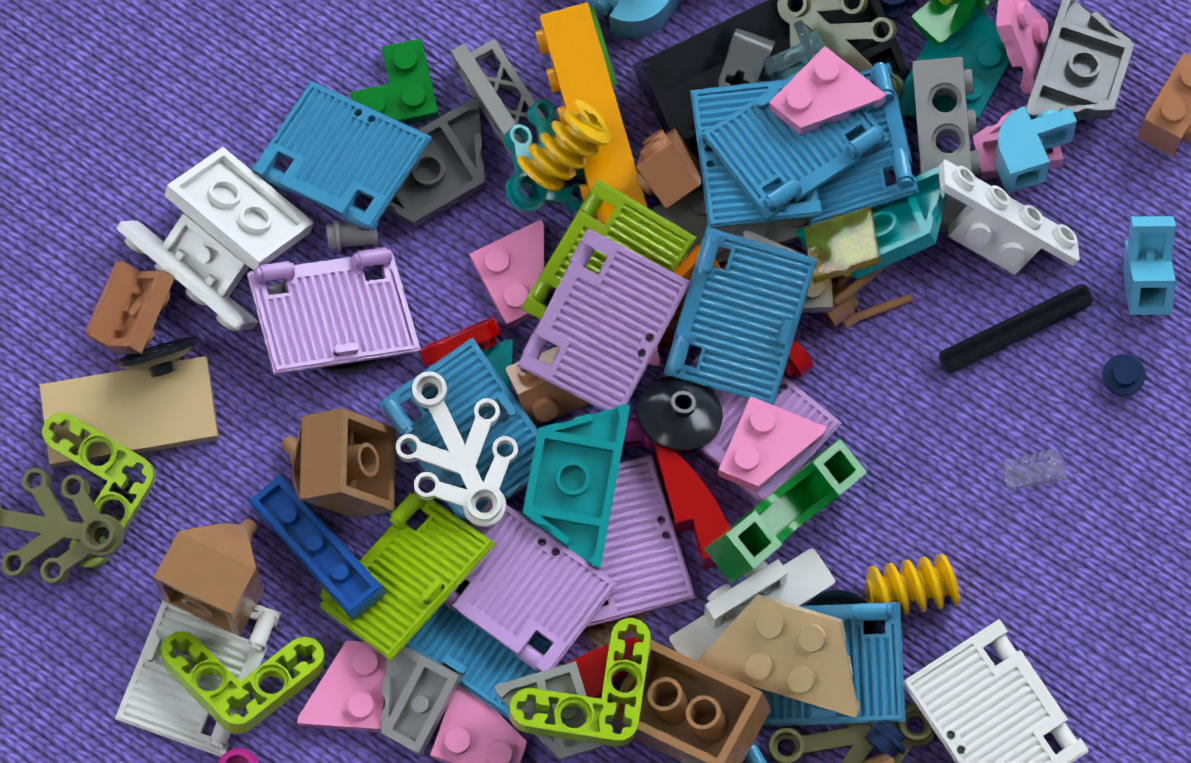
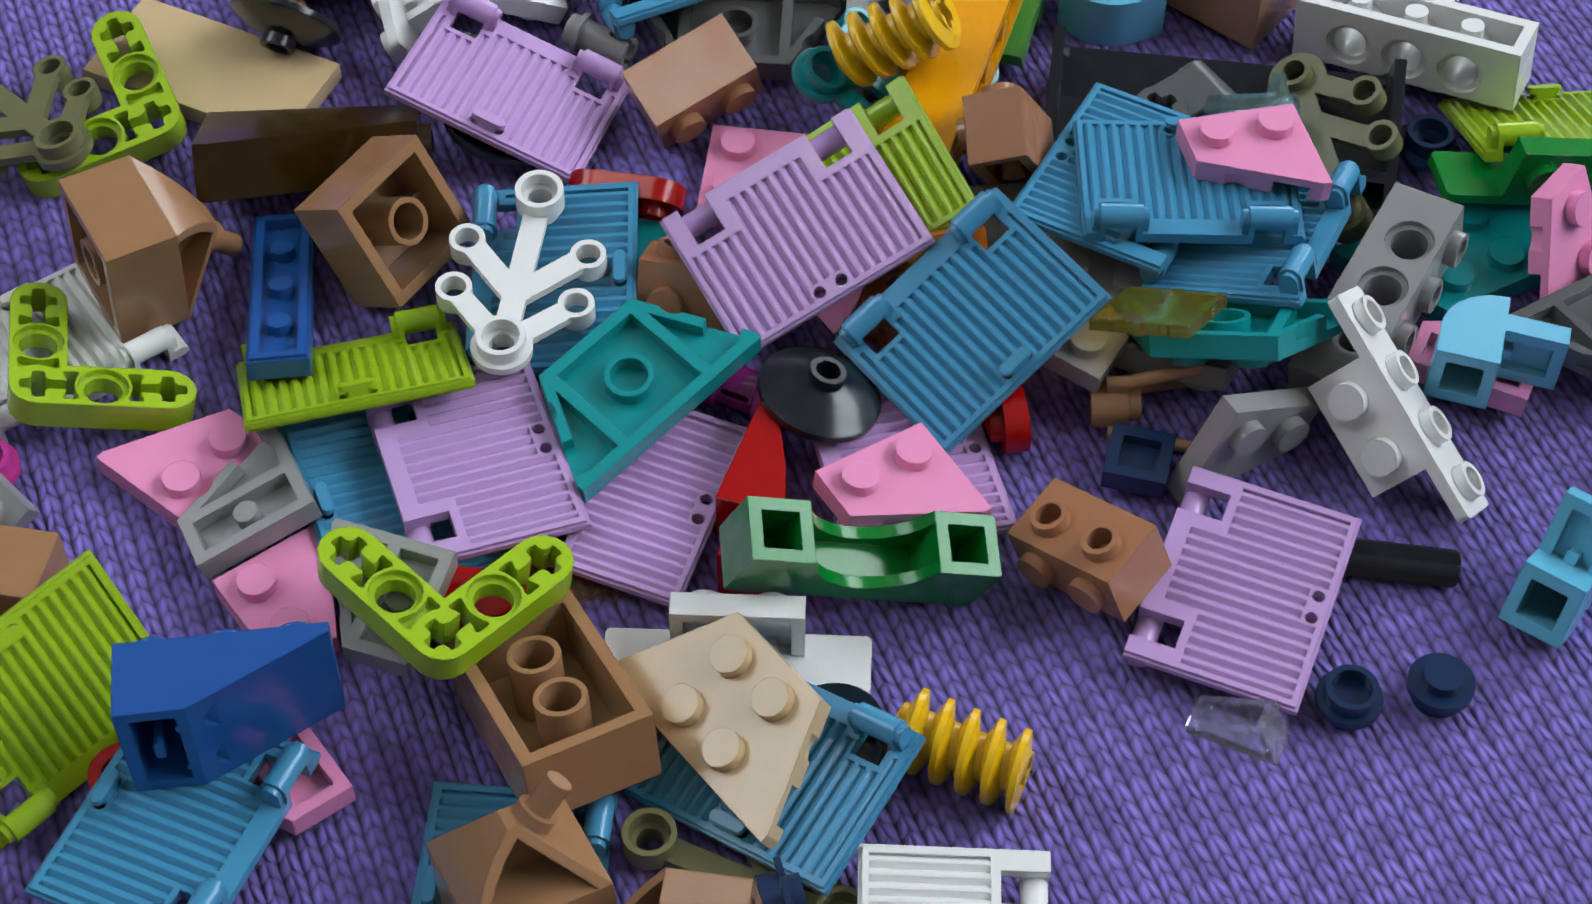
camera: 30 degrees right, 20 degrees down
(247, 440) = (289, 148): none -> dark brown slope
(444, 238) = (693, 82): none -> nougat brick
(877, 335) = (1138, 460): none -> dark blue plate
(896, 421) = (1089, 550): none -> nougat brick
(929, 287) = (1246, 433): none -> light grey wing
(989, 386) = (1245, 590): none -> lavender window
(1082, 416) = (1349, 697): none -> dark blue plate

